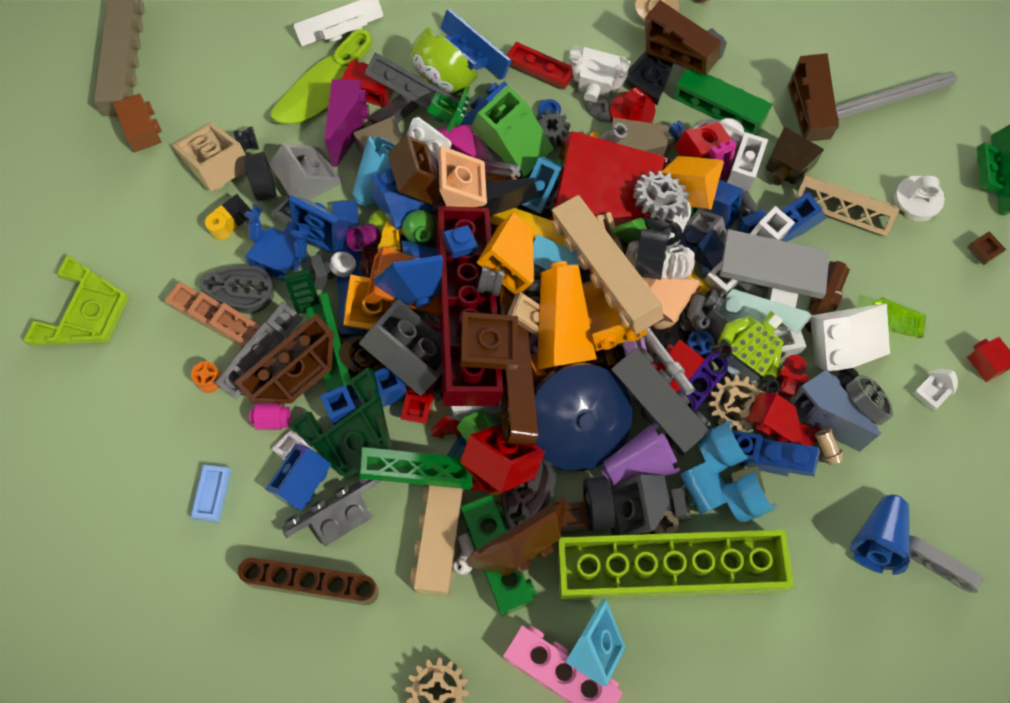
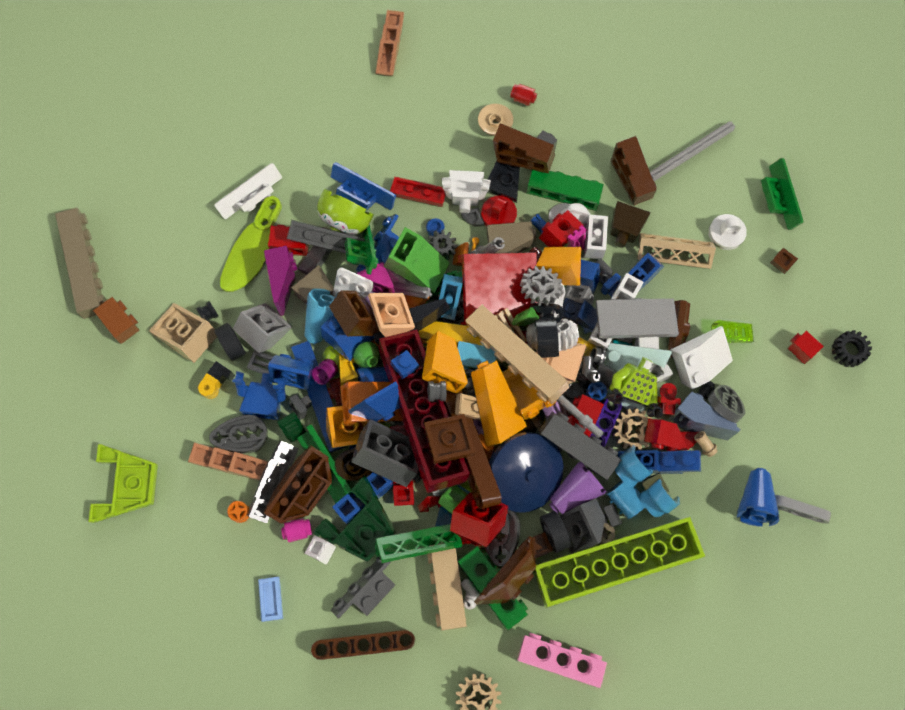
camera: 15 degrees left, 5 degrees up
(298, 477) = (333, 570): blue brick -> none
(342, 264) = (315, 396): white tile -> none
(598, 646) = (581, 634): medium azure slope -> none
(937, 388) = (770, 379): white tile -> none

